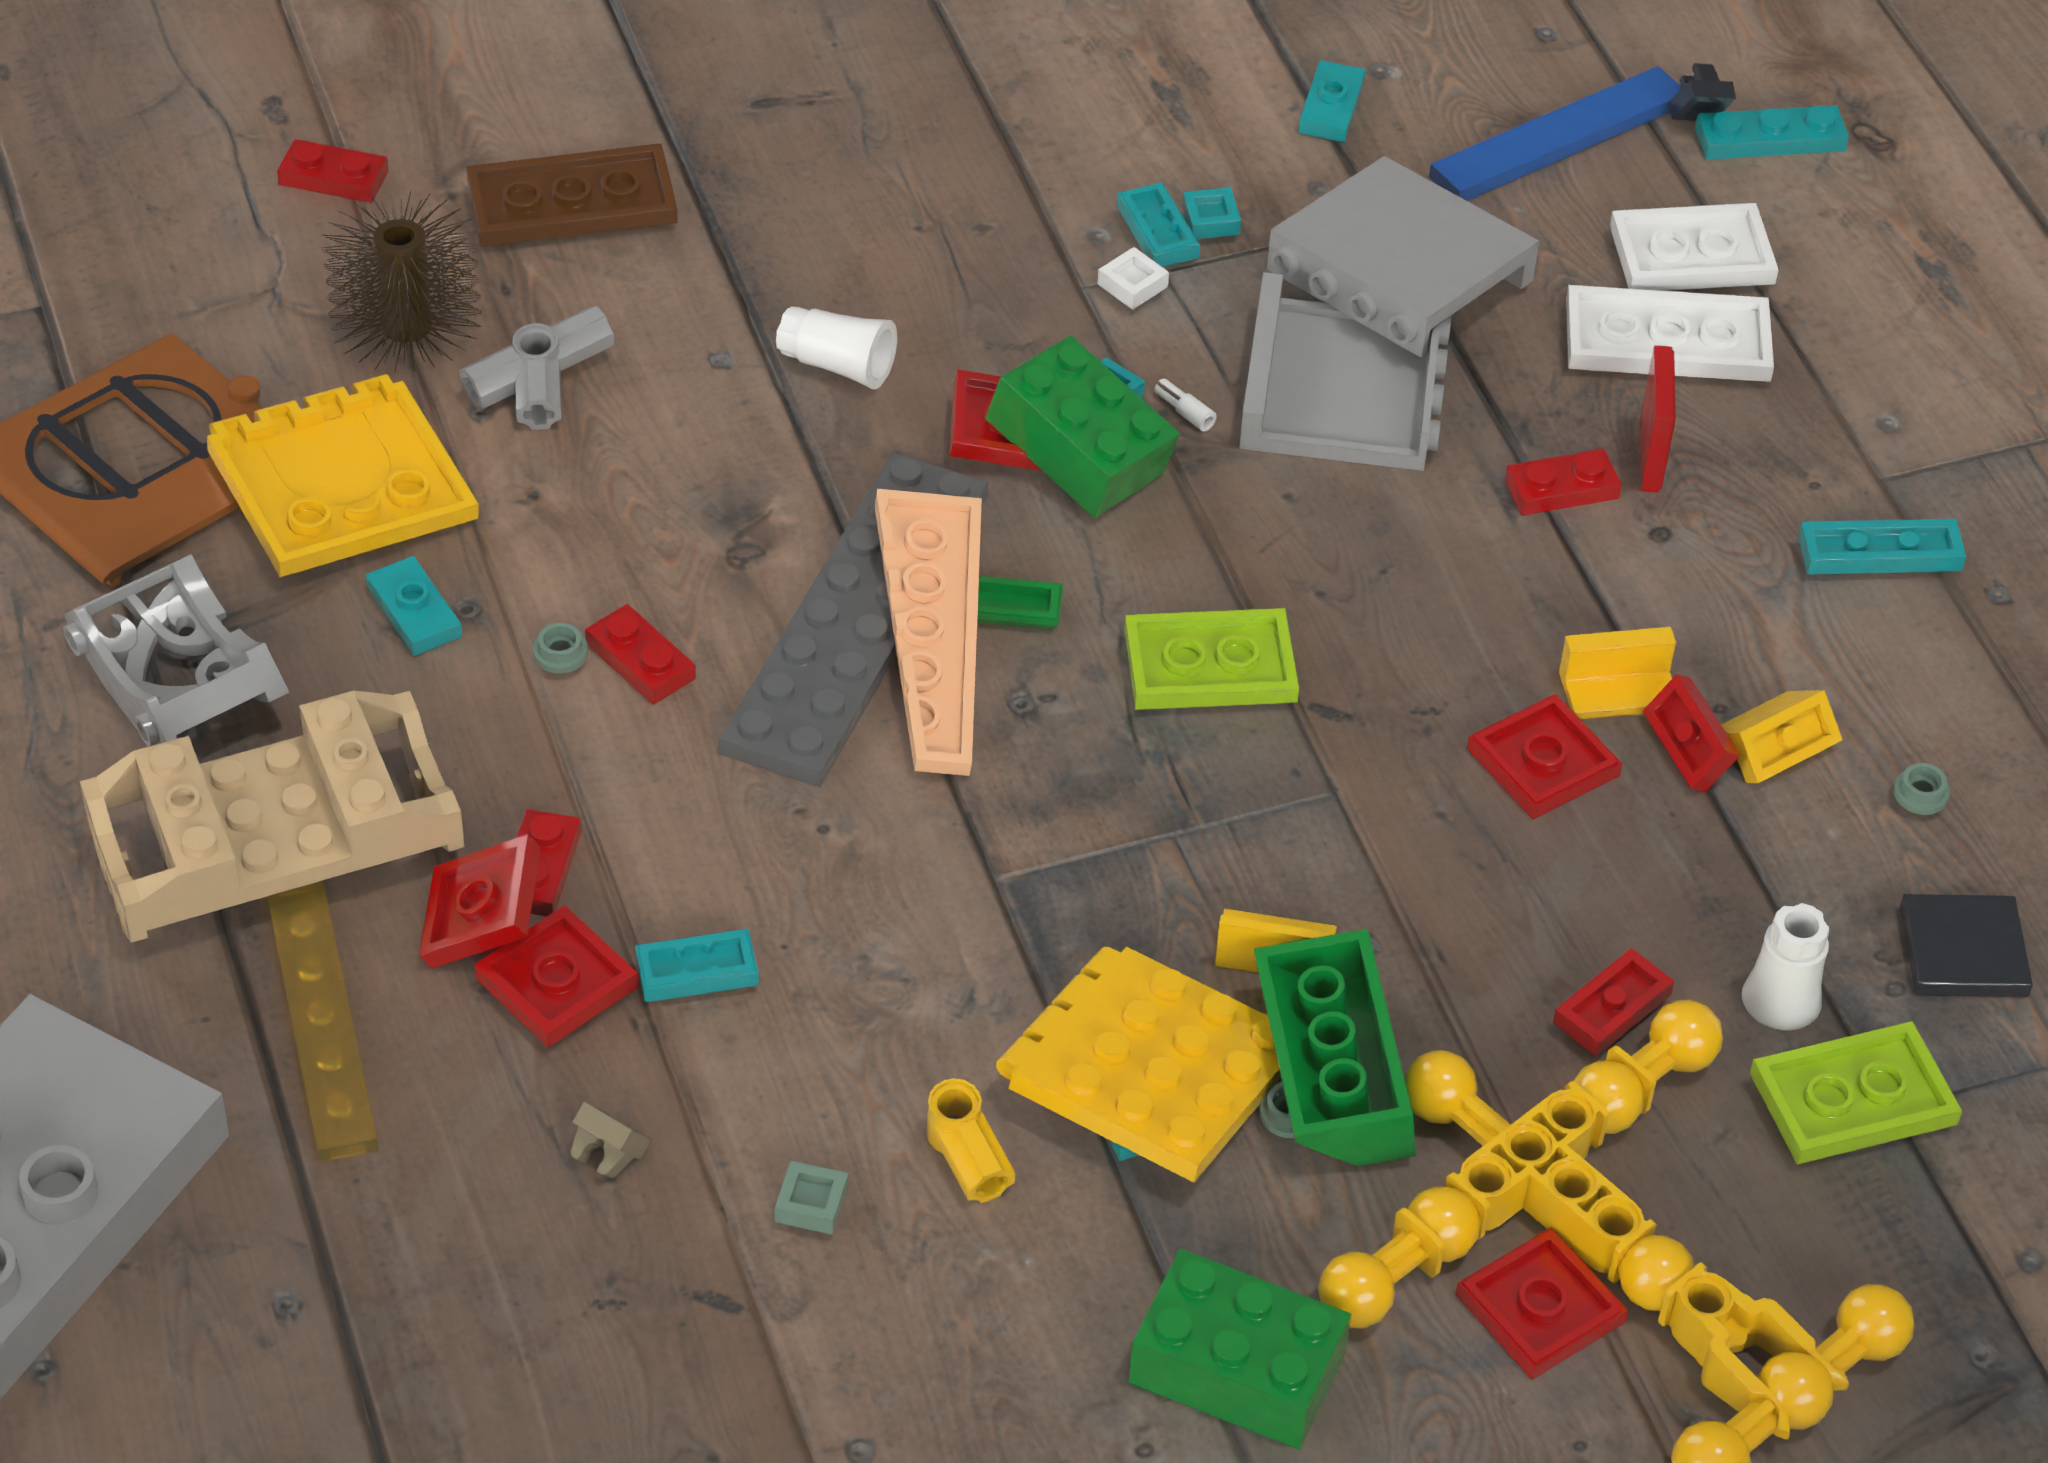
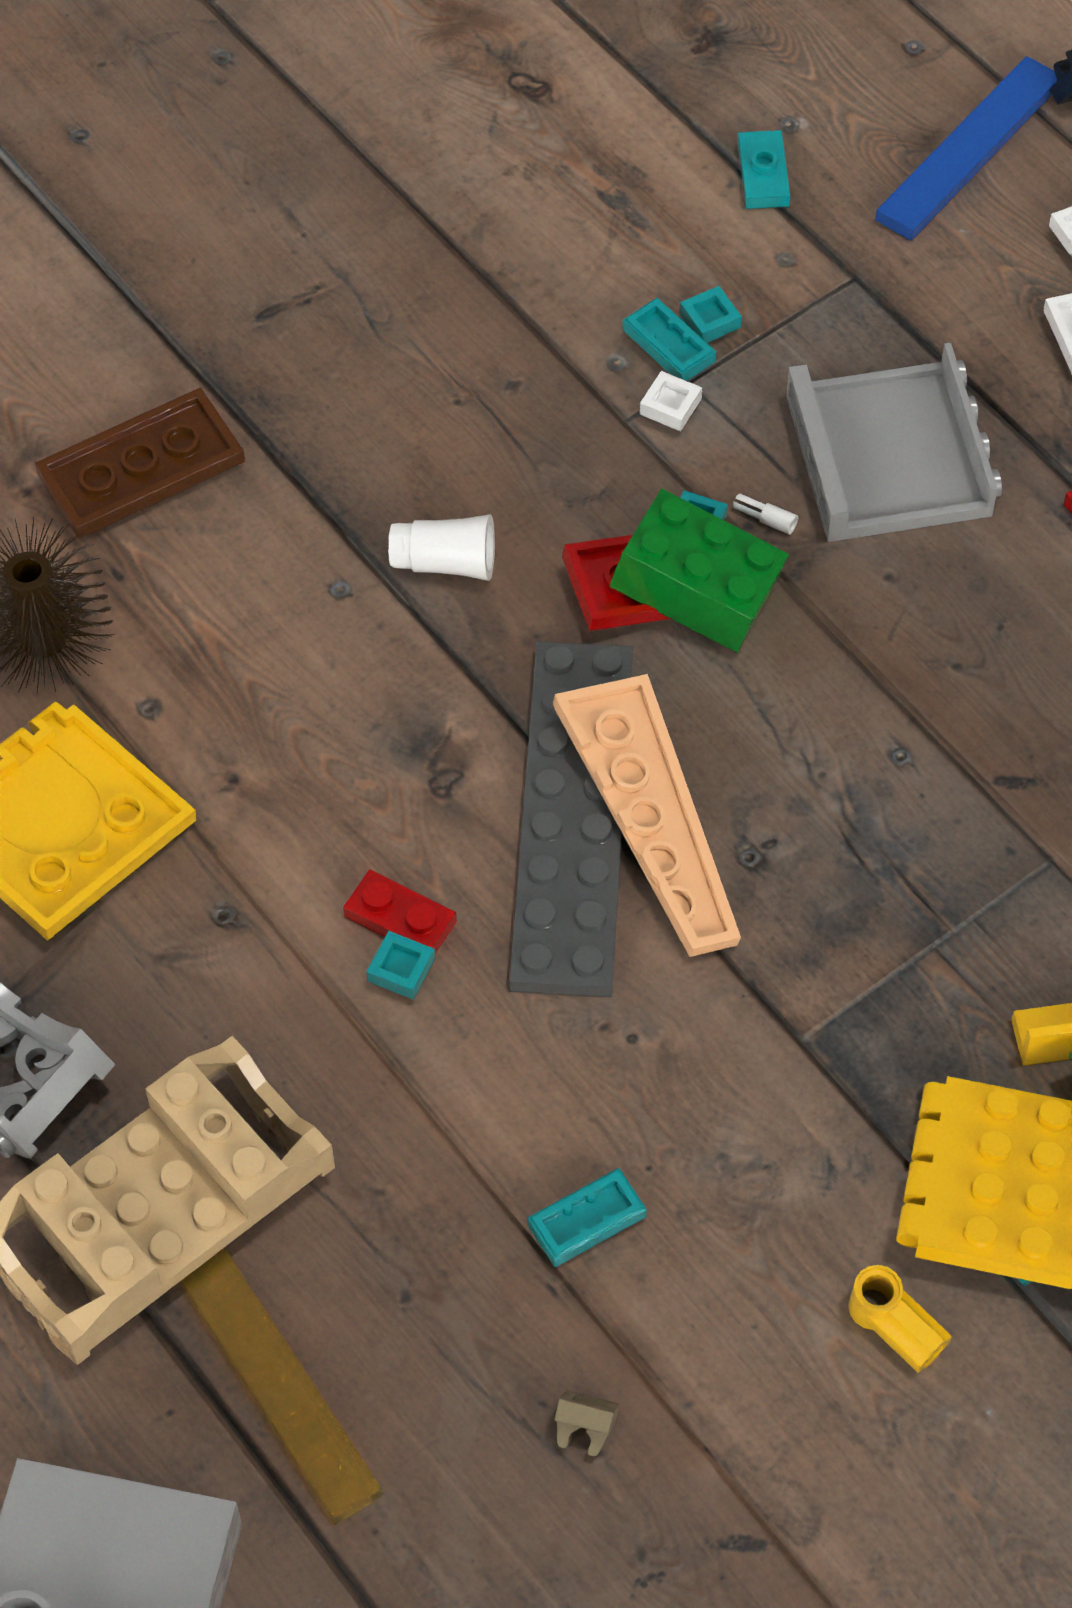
camera: 15 degrees left, 10 degrees up
(413, 605) = (177, 929): teal plate -> none
(480, 901) = (375, 1221): red plate -> none
(535, 364) = (188, 663): light grey piece -> none
(556, 976) = (469, 1269): red plate -> none
(558, 841) = (402, 1156): red plate -> none
(560, 648) = (329, 921): sand green plate -> none
(617, 695) = (401, 965): none -> teal plate
(811, 1197) = (785, 1418): sand green plate -> none
(1019, 602) = (712, 756): green tile -> none
(1211, 658) = (898, 765): lime plate -> none
(1398, 252) = (894, 312): light grey panel -> none

